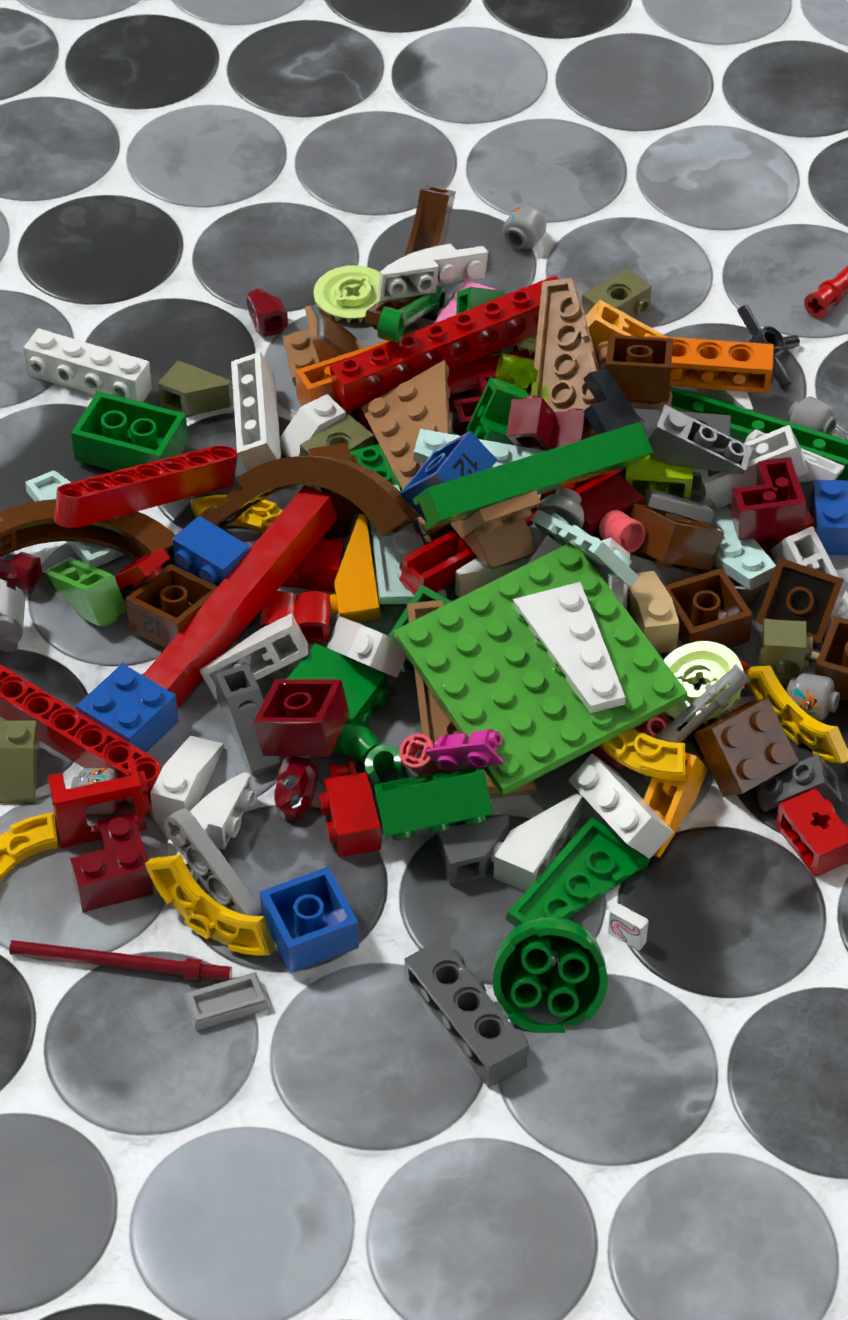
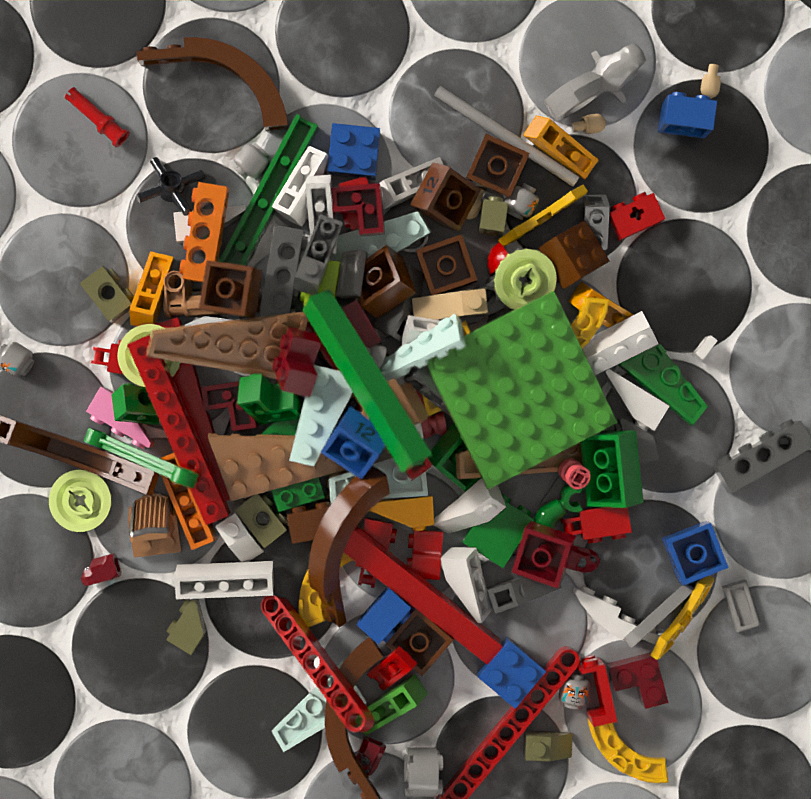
camera: 90 degrees left, 40 degrees up
(86, 366) = (162, 708): white brick -> none
(127, 433) = (244, 675): green brick -> none
(185, 777) = (563, 631): white slope -> none
(191, 969) = (718, 627): dark red bar -> none
(430, 267) = (88, 448): white slope -> none
(455, 752) = (595, 437): dark pink hinge -> none
(516, 370) = (217, 381): clear neon green piece -> none
(527, 958) = (738, 401): green cylinder -> none
(574, 642) = (511, 367): white wing -> none
(612, 406) = (281, 311): black tile -> none
(623, 530) = (384, 318): coral wheel -> none
(734, 678) = (549, 271): light grey pin -> none

